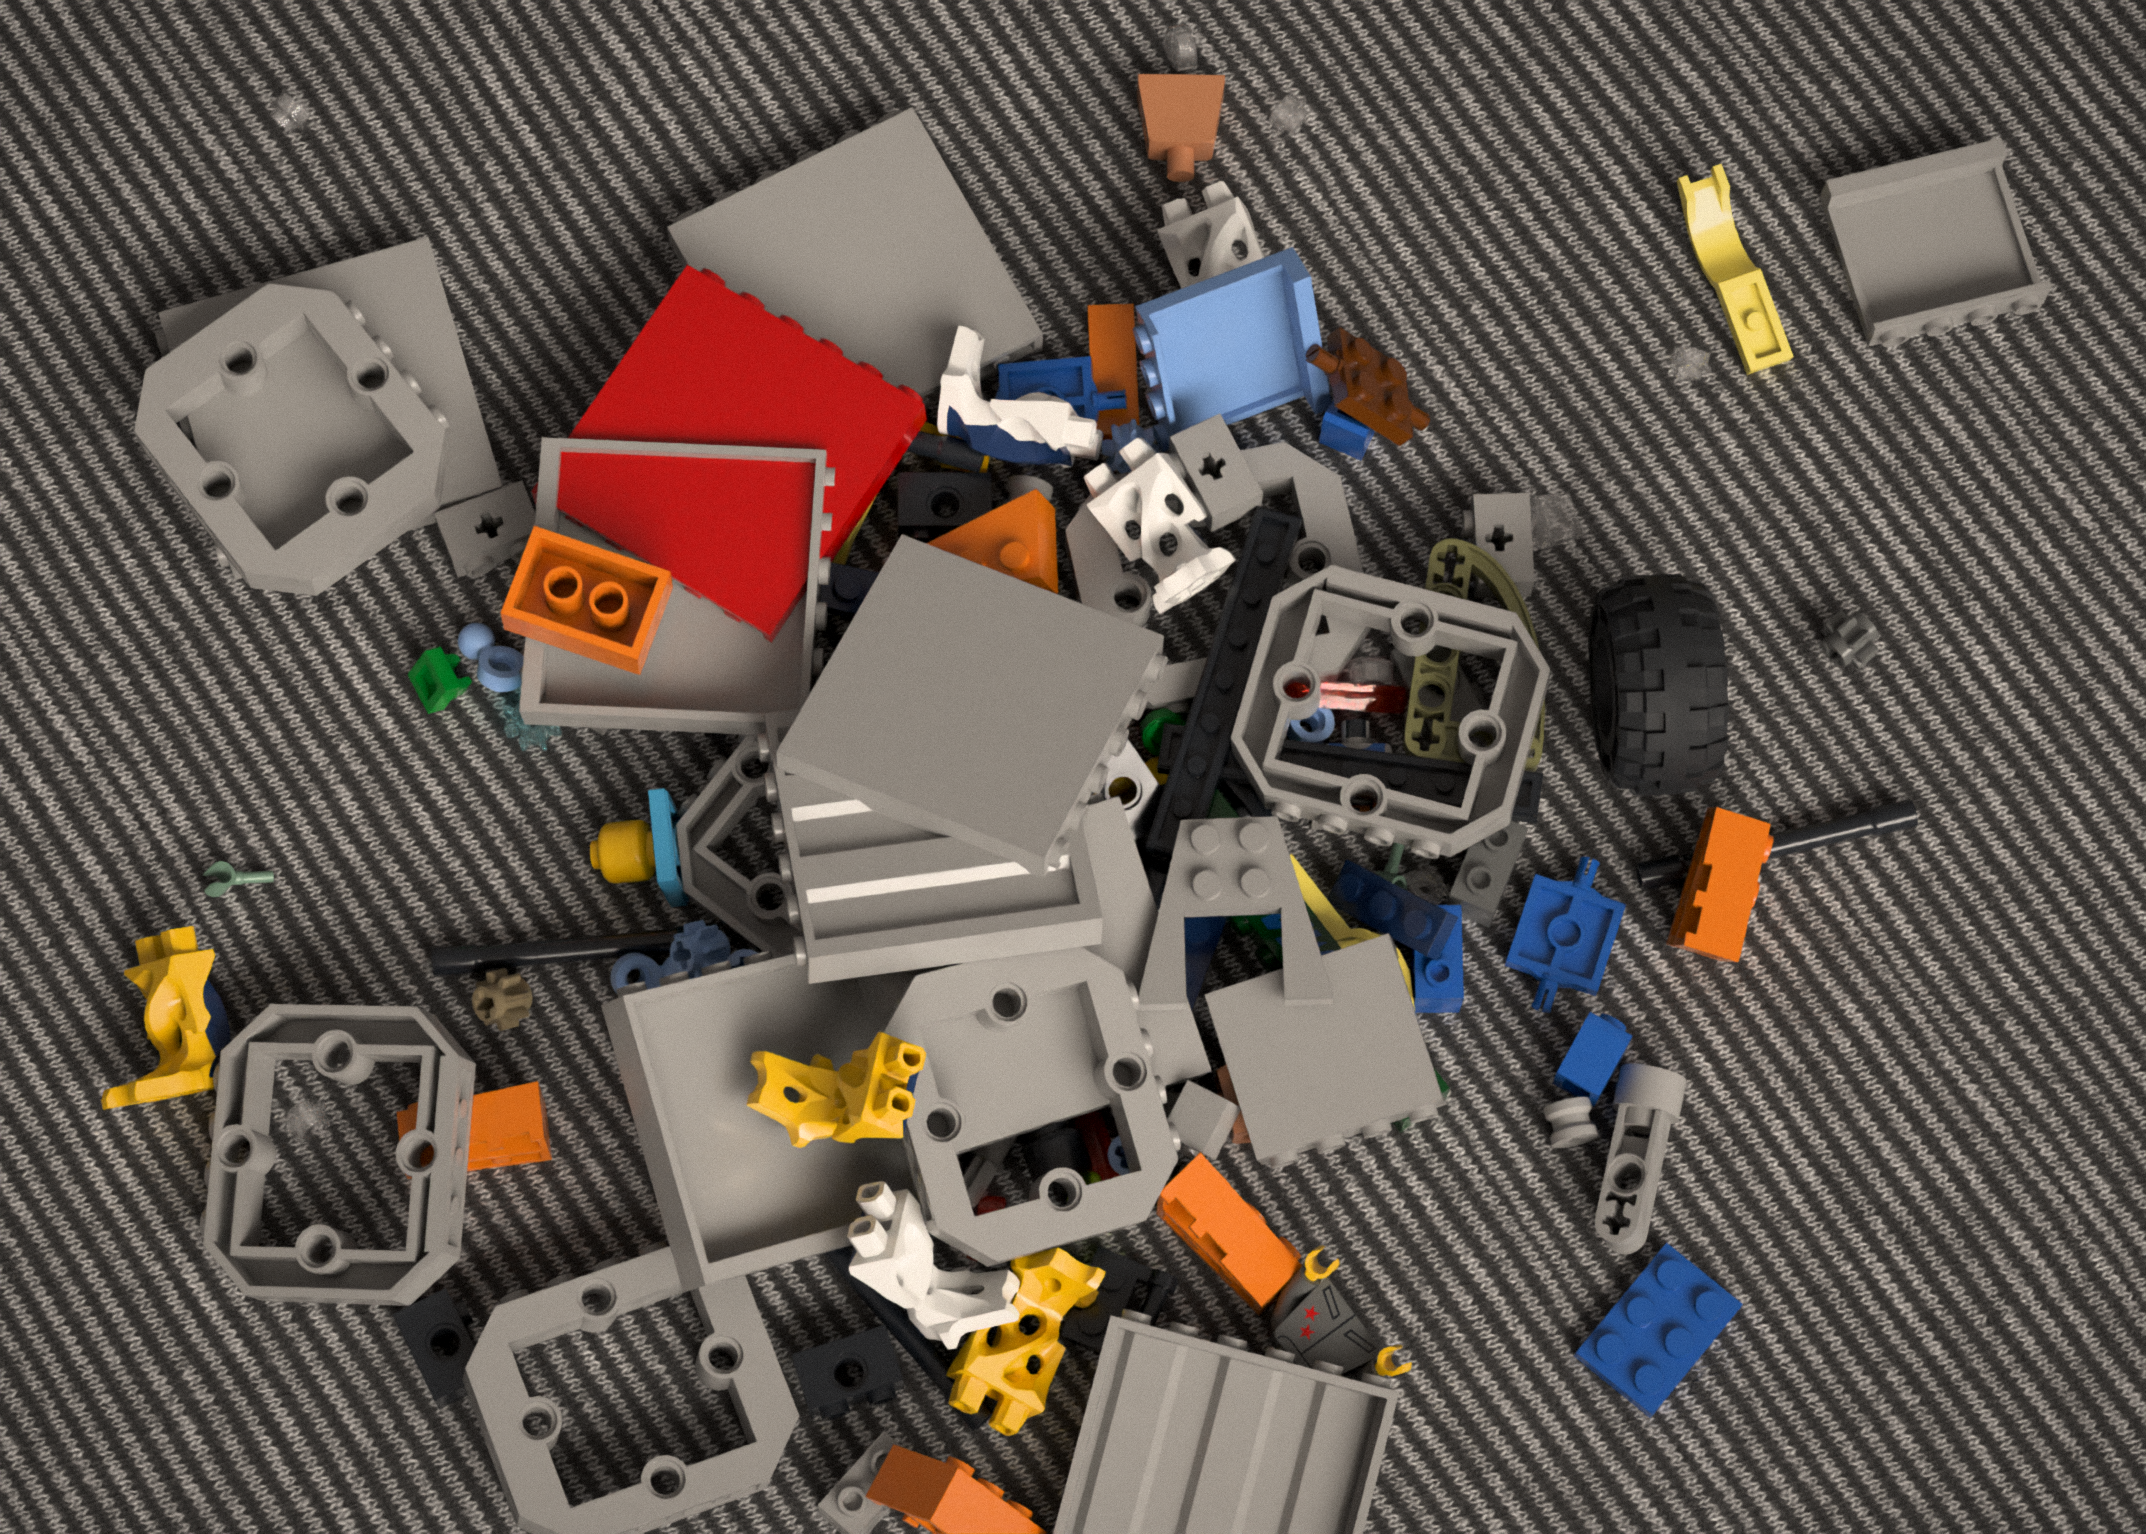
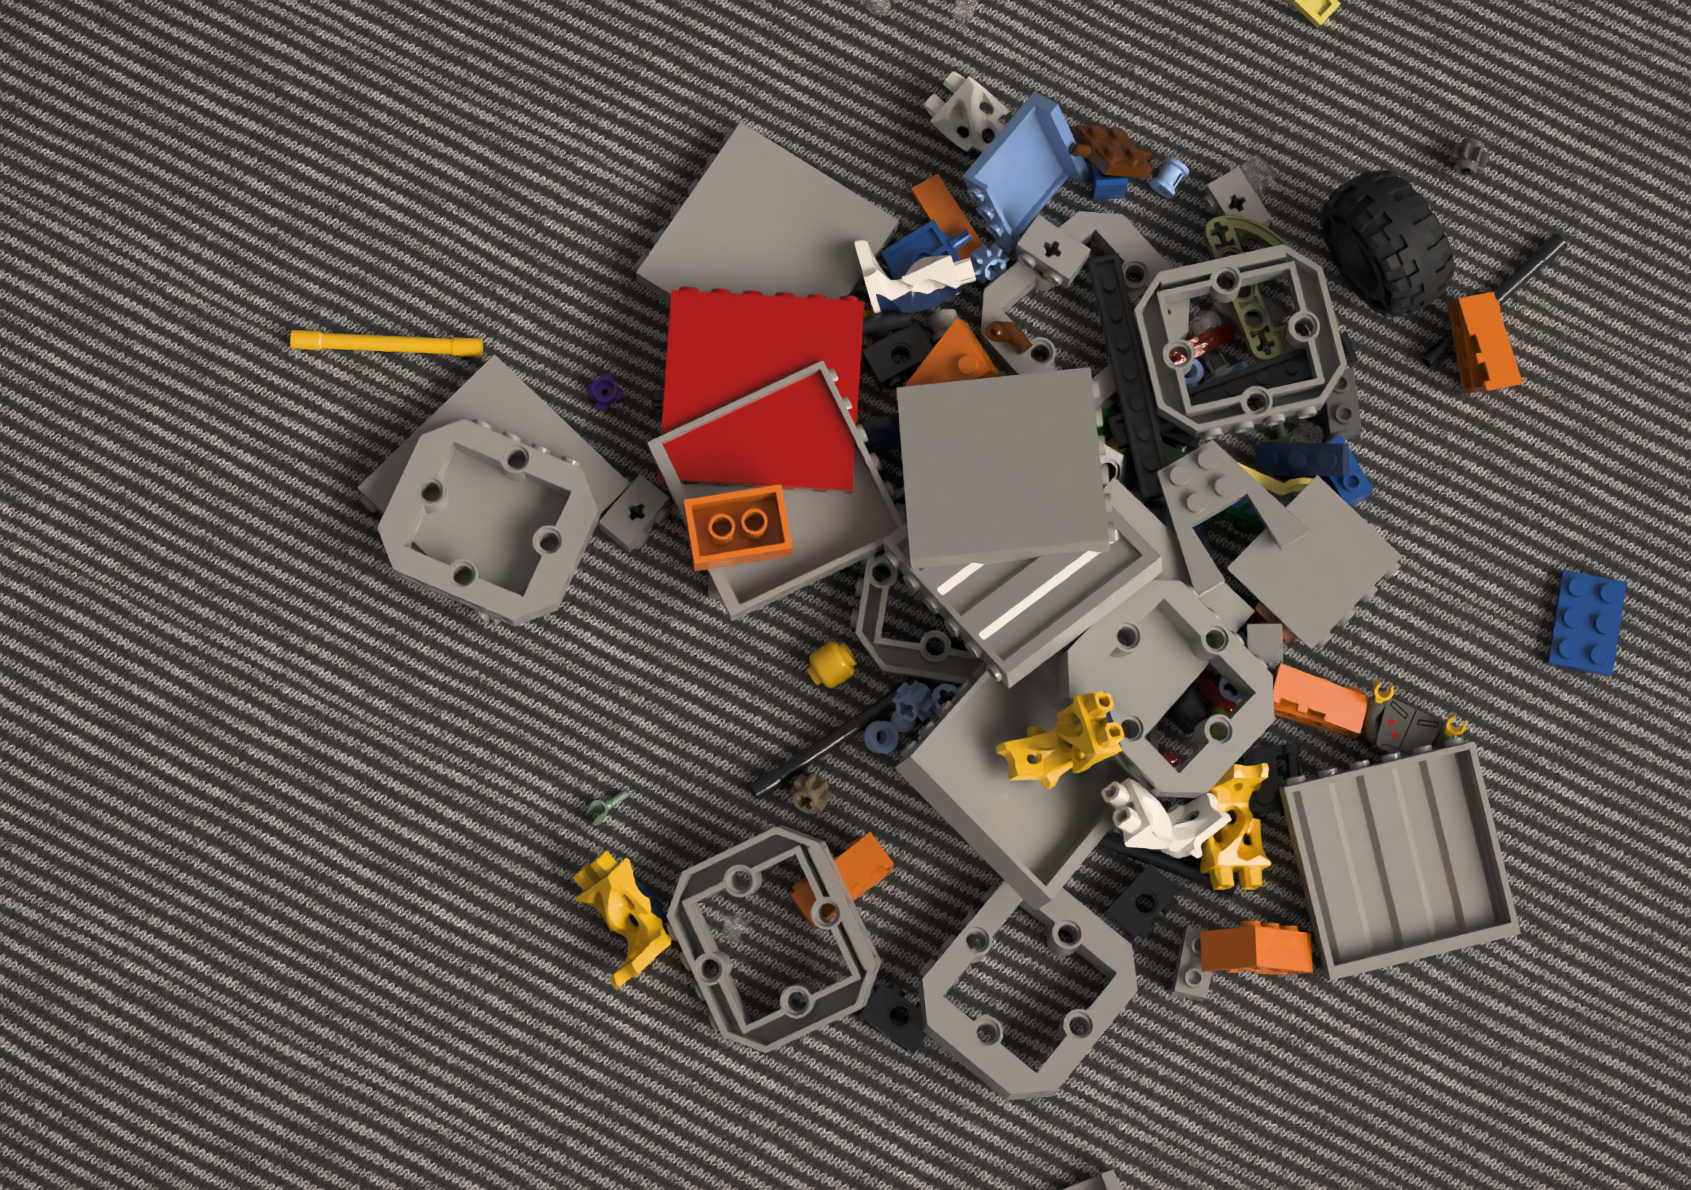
camera: 30 degrees left, 5 degrees up
(226, 111) = (318, 340): none -> yellow piece
(289, 112) = (359, 321): clear plate -> none
(436, 680) = (656, 622): green tile -> none
(497, 665) = (690, 593): light blue plate -> none
(527, 734) = (729, 625): clear light blue gear -> none
(544, 346) = (604, 383): none -> dark purple plate
(666, 848) = (858, 649): dark azure tile -> none
(1097, 546) = (1008, 332): none -> reddish brown arm
(1142, 498) = (1021, 289): white hips -> none
(1180, 119) = (901, 46): nougat torso -> none
(1433, 462) = (1169, 177): none -> light blue bush
(1565, 934) = (1404, 419): blue plate -> none
(1570, 1122) = (1470, 529): light grey wheel -> none
(1593, 1057) = (1465, 484): blue slope -> none
(1646, 1104) = (1509, 494): light grey beam -> none
(1689, 363) = (1283, 39): clear plate -> none

